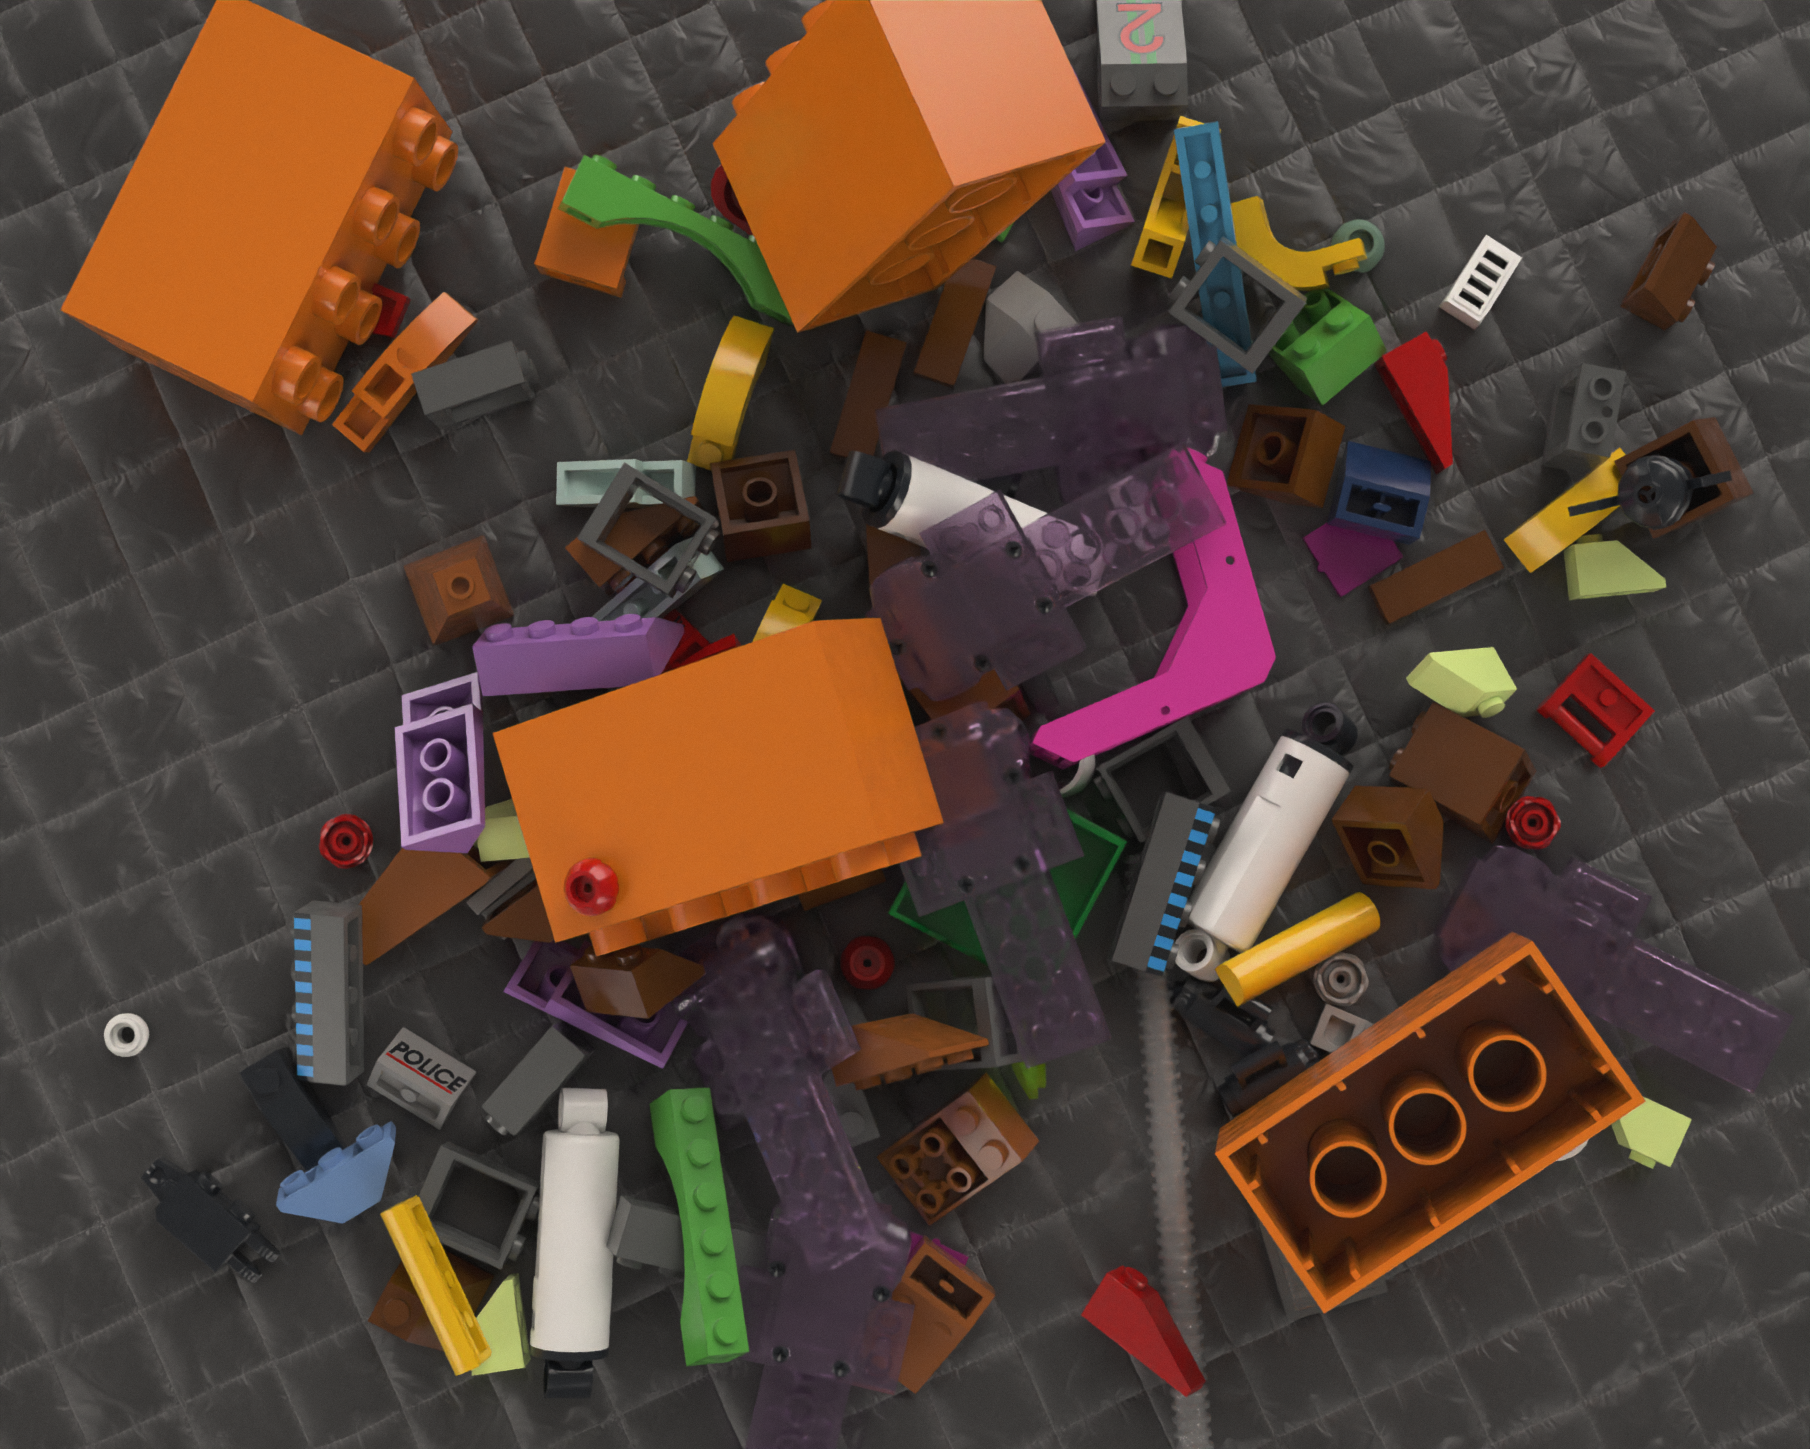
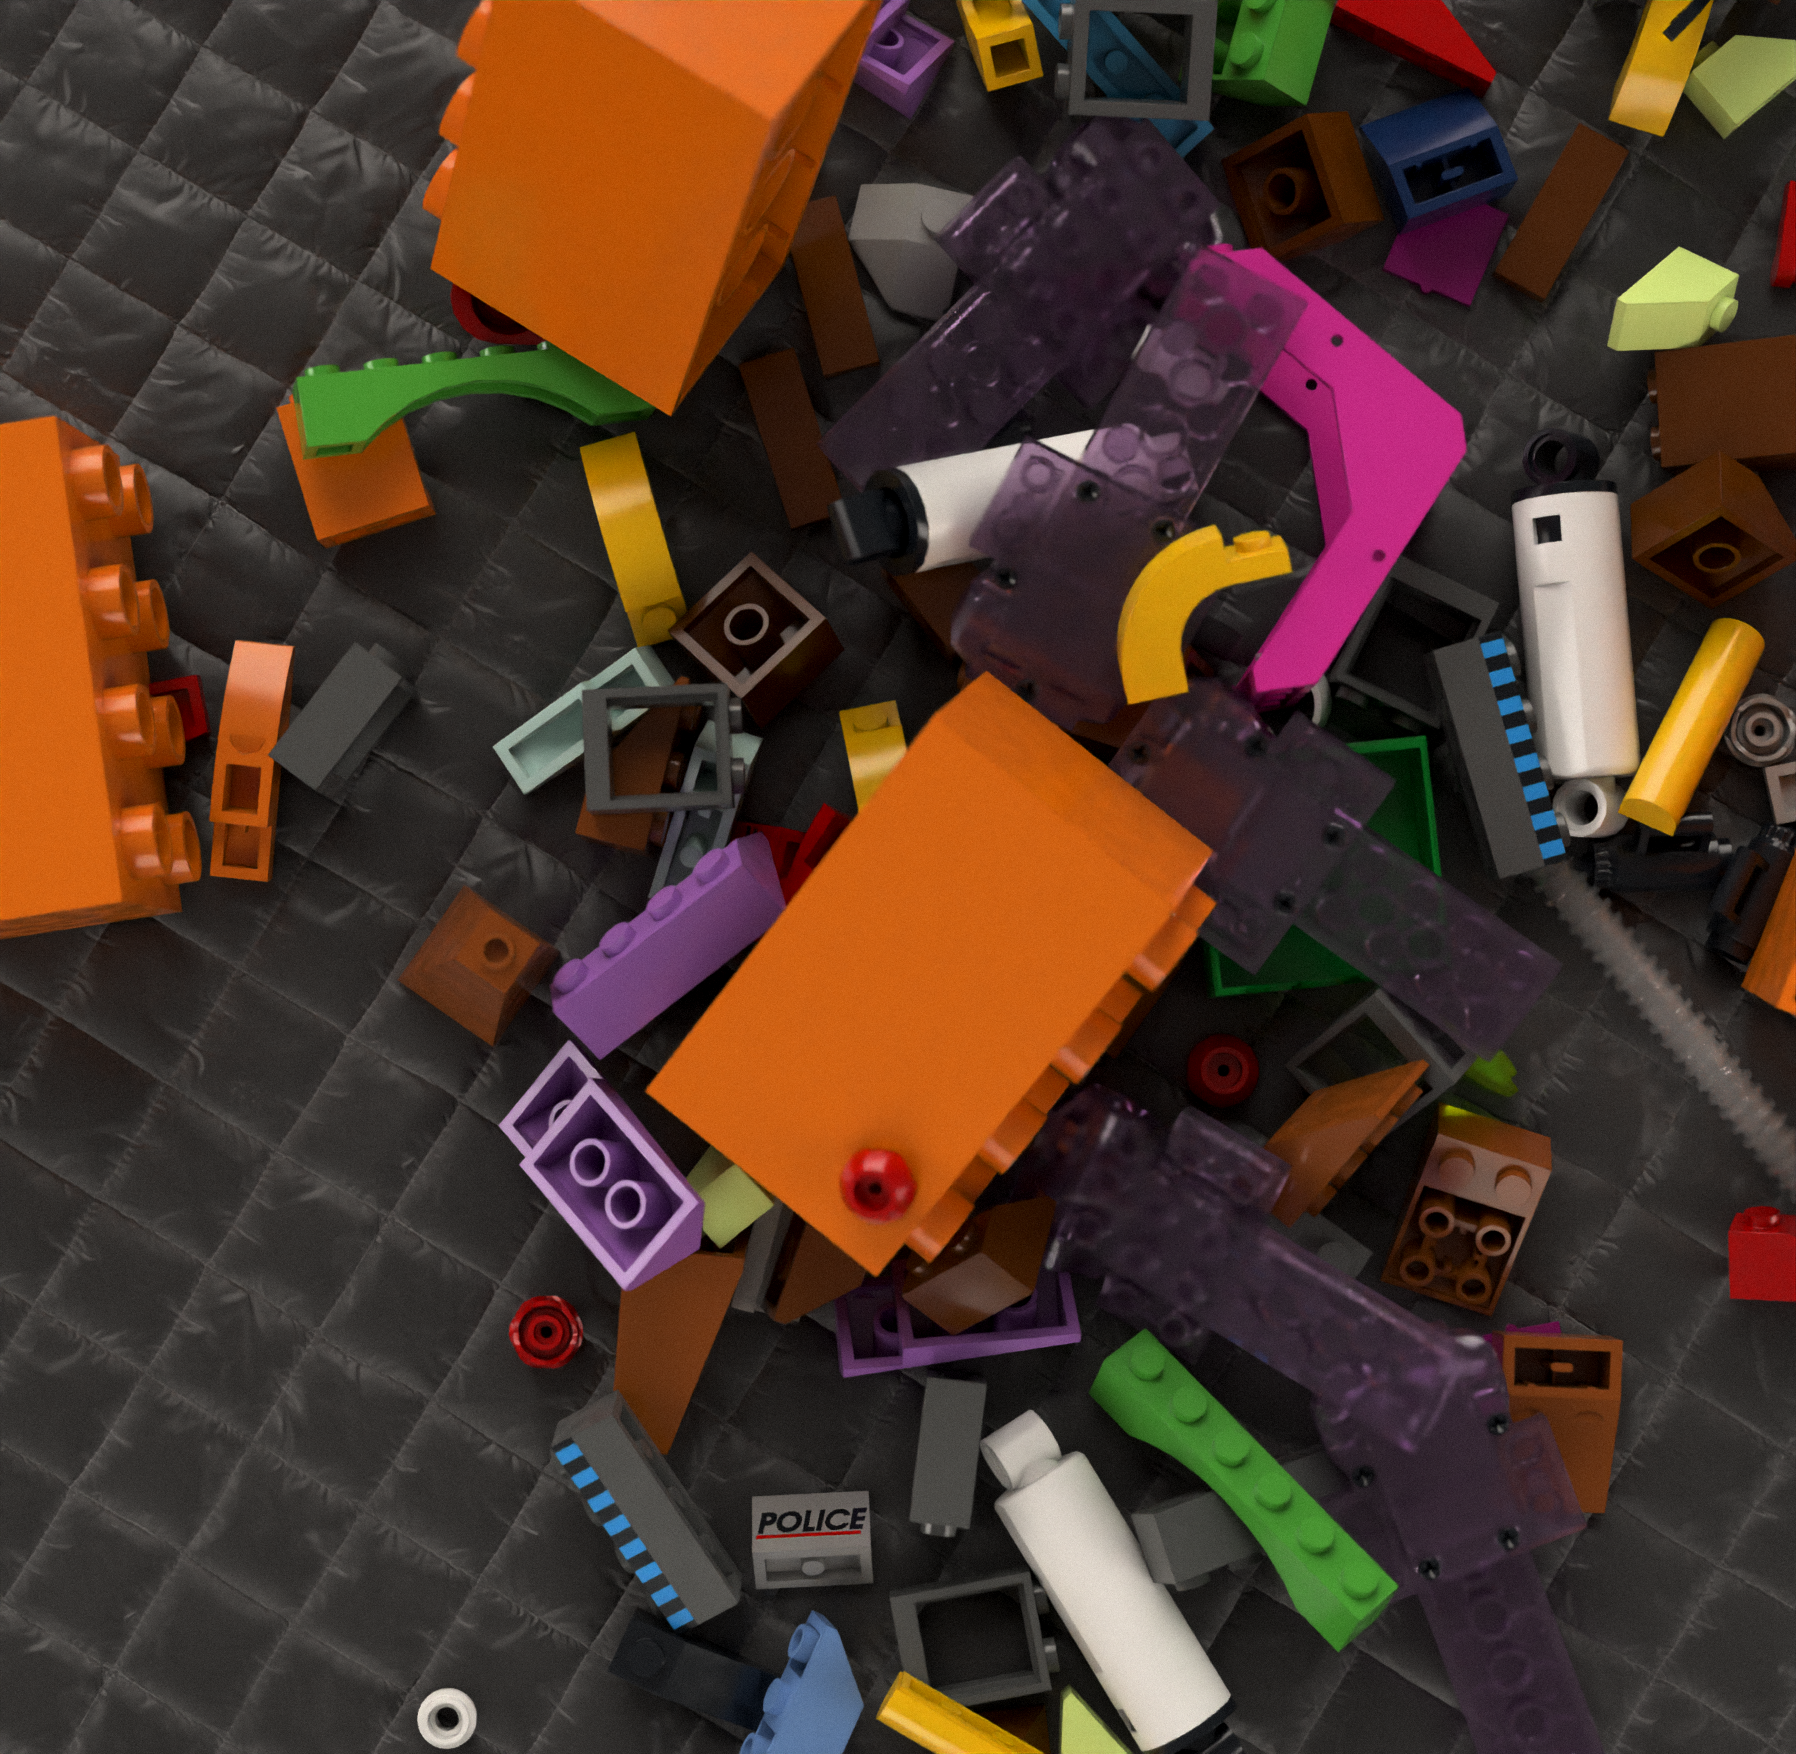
camera: 30 degrees left, 0 degrees up
(1021, 644) = (1168, 593): none -> yellow arch

